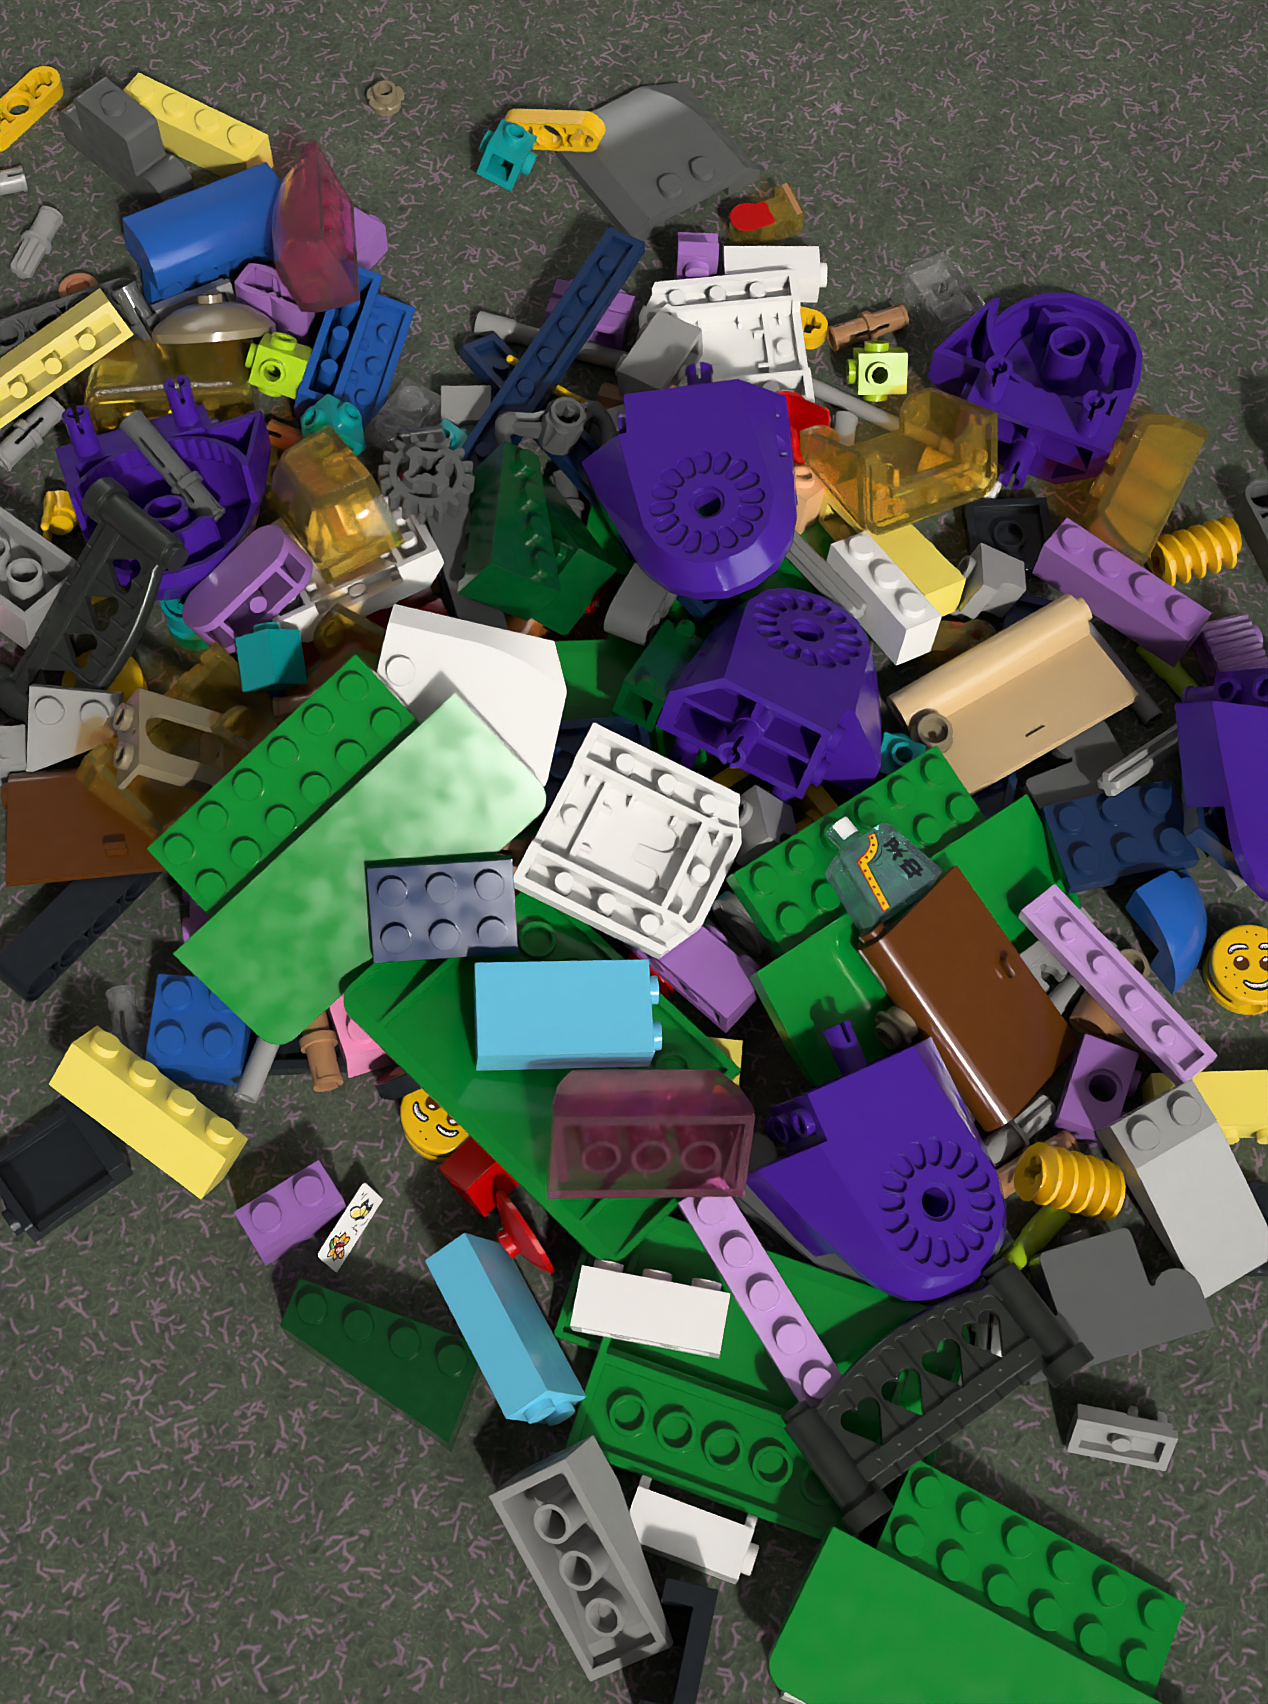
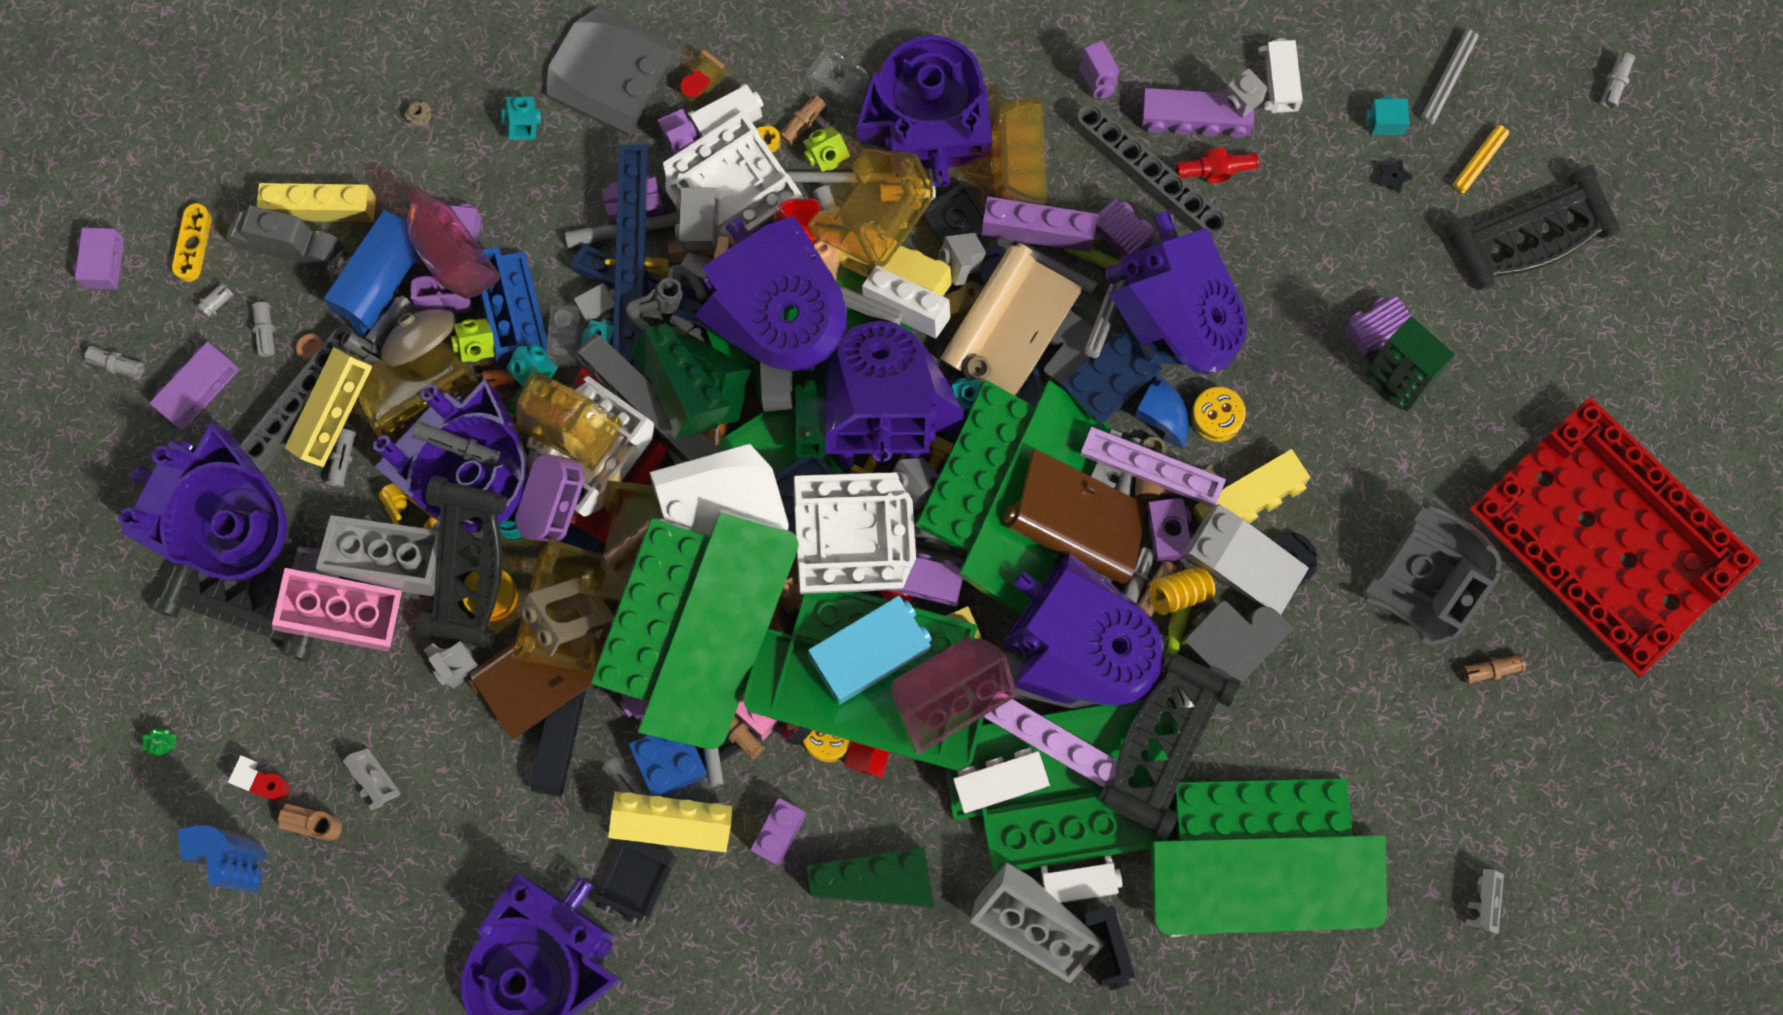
camera: 20 degrees left, 10 degrees up
(67, 722) = (488, 627): light grey wing -> none
(271, 659) = (589, 533): teal brick -> none
(349, 1227) = (813, 822): white sticker -> none
(426, 478) = (619, 387): dark grey gear -> none
(442, 909) = (772, 628): plate -> none
(506, 1331) = (931, 833): medium azure brick -> none
(518, 1237) = (907, 779): red dish -> none
(577, 129) = (541, 84): yellow beam -> none
(877, 872) = (995, 478): clear light blue torso -> none
(895, 1028) = (1048, 557): dark tan plate -> none
(1122, 1436) = (1274, 710): light grey plate -> none
(1196, 550) = (1067, 169): yellow piece -> none

